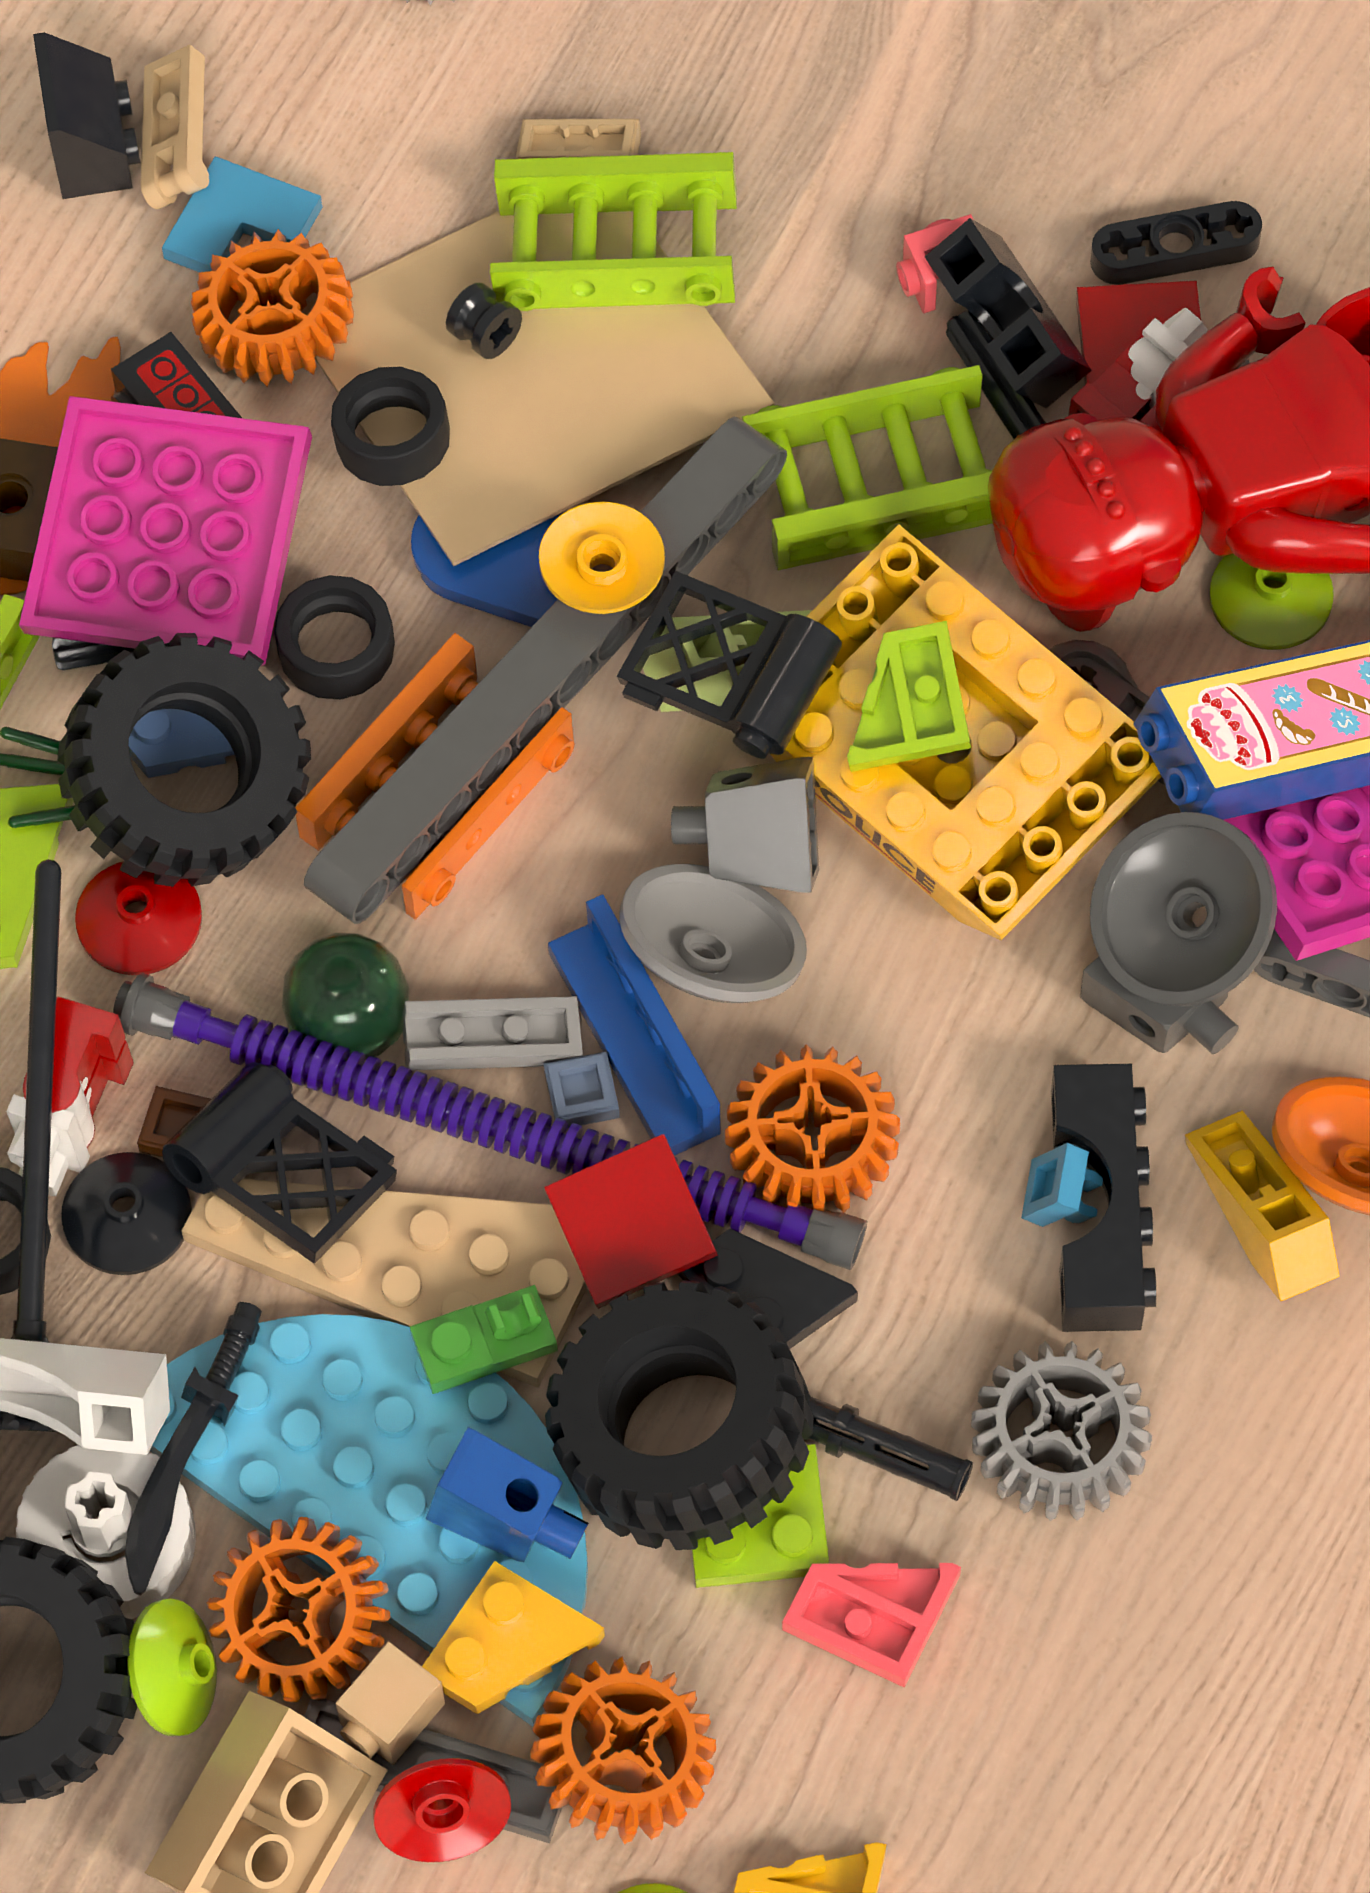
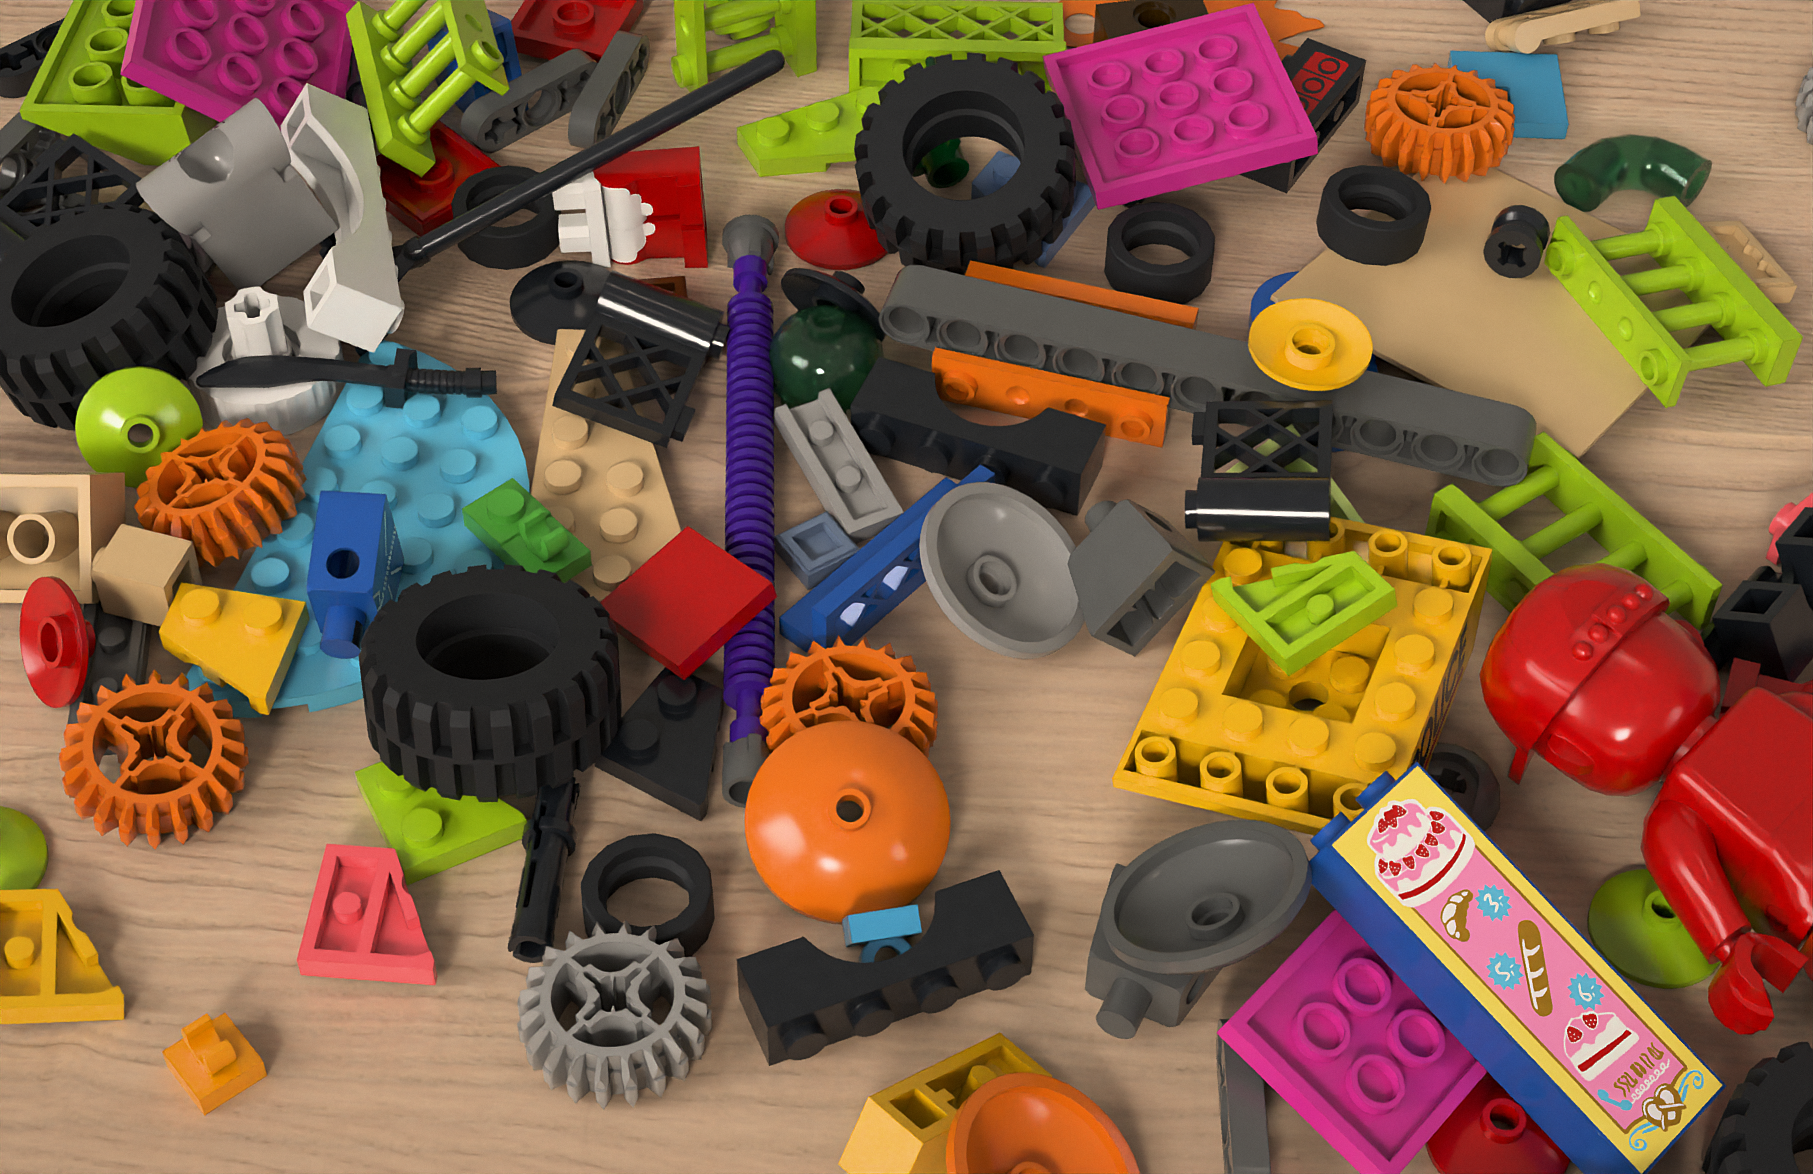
camera: 65 degrees right, 15 degrees down
(289, 946) = (812, 288): none -> black dish
(407, 174) = (1631, 164): none -> clear green cylinder
(459, 948) = (1045, 458): none -> black arch
(915, 1191) = (835, 865): none -> orange dish
(936, 1321) = (645, 858): none -> black tyre
(973, 1783) = (213, 1061): none -> light orange tile

